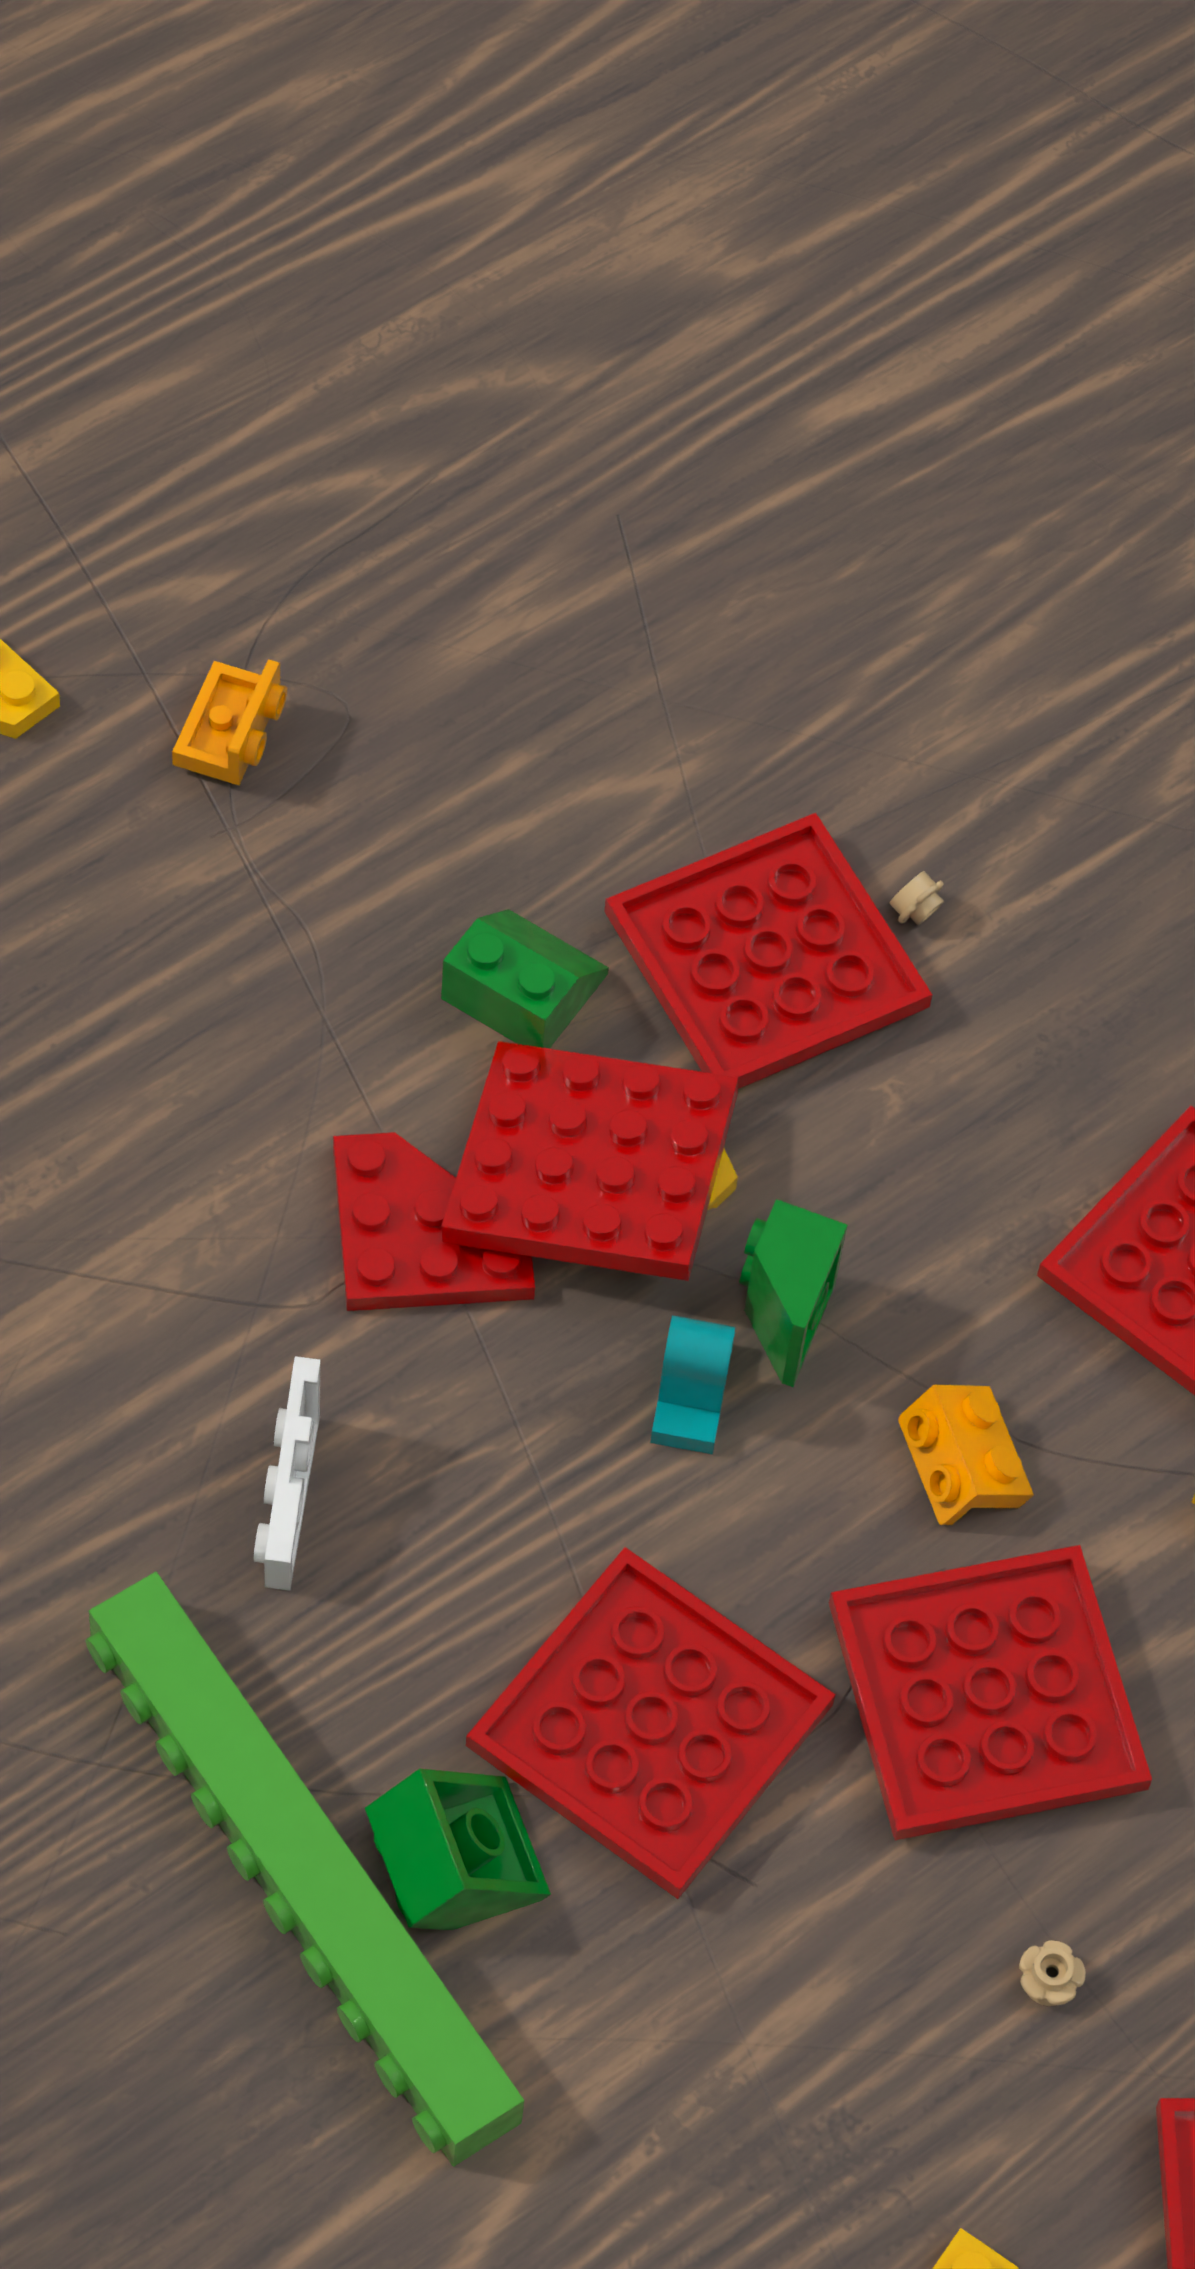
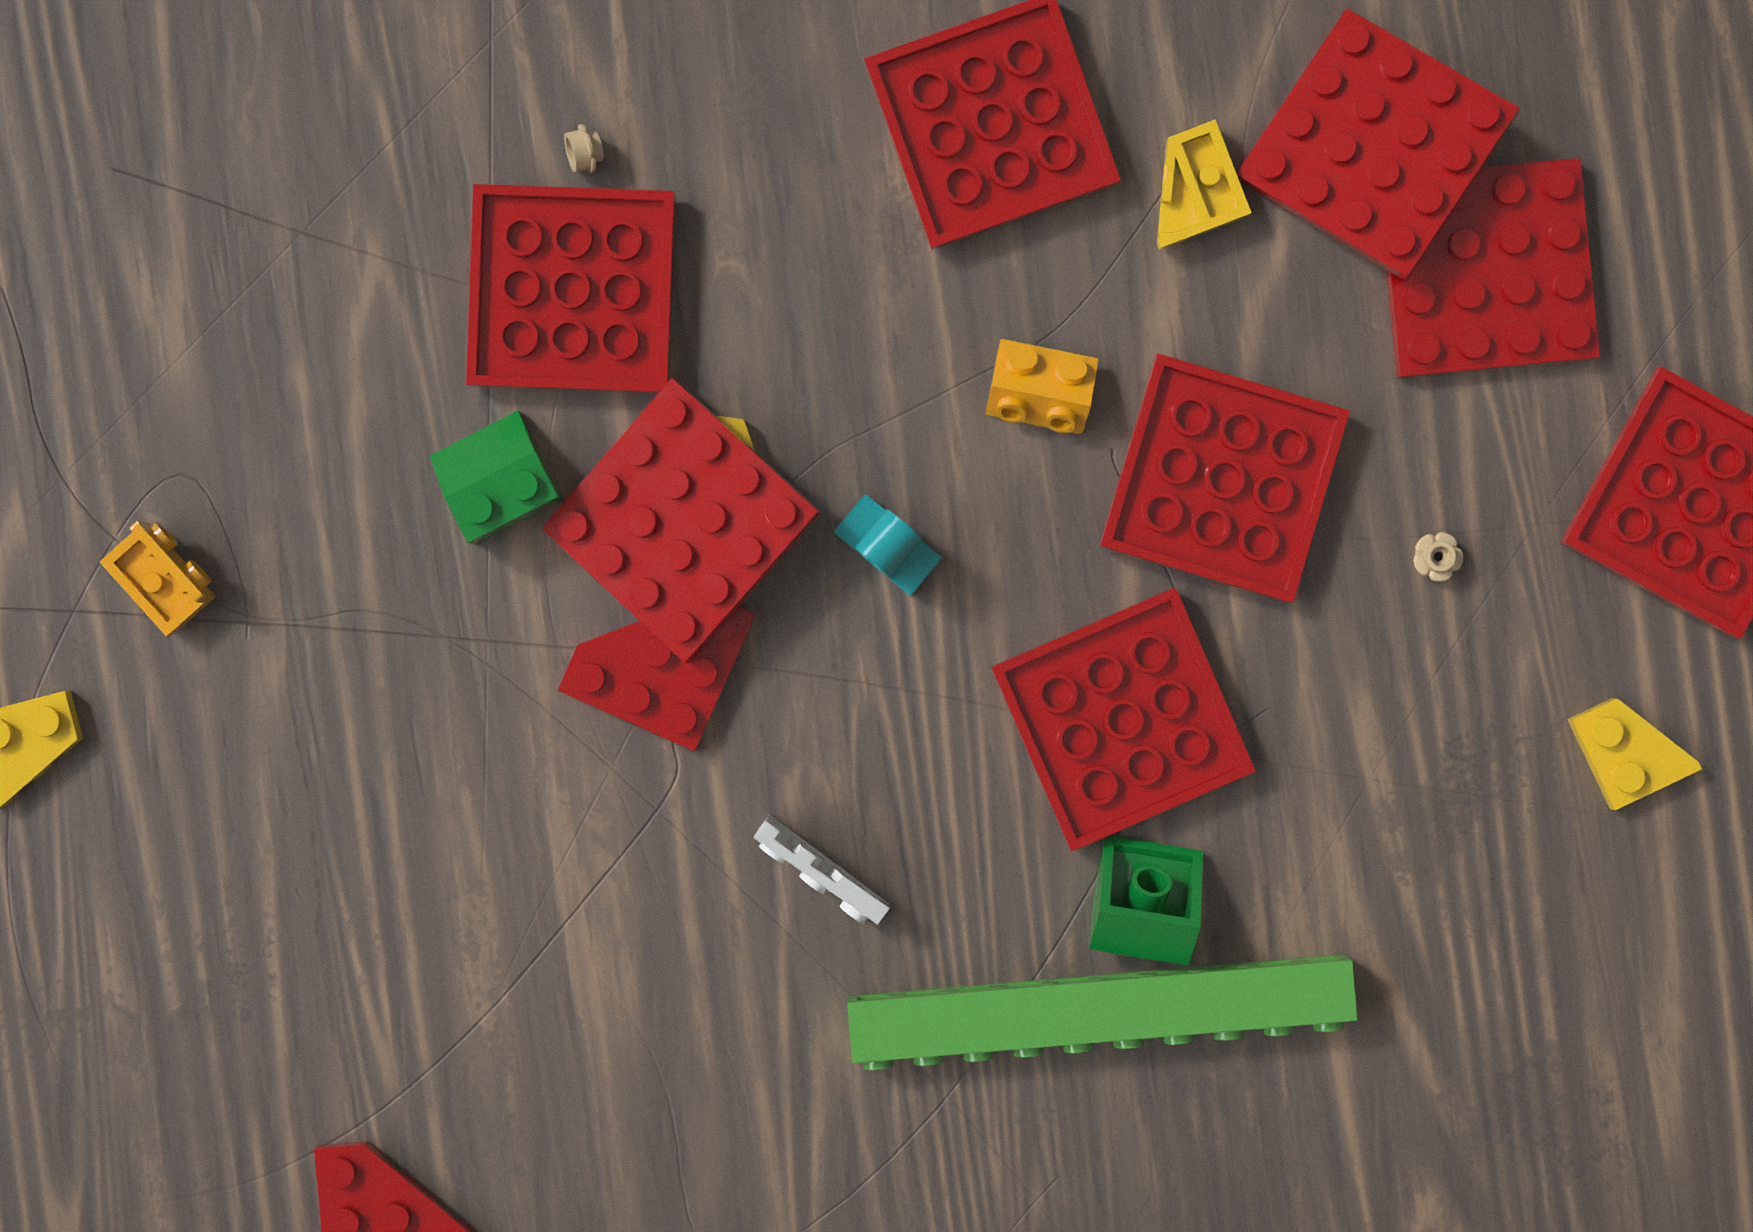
camera: 55 degrees left, 30 degrees up
(790, 1281) = (861, 440): green slope -> none

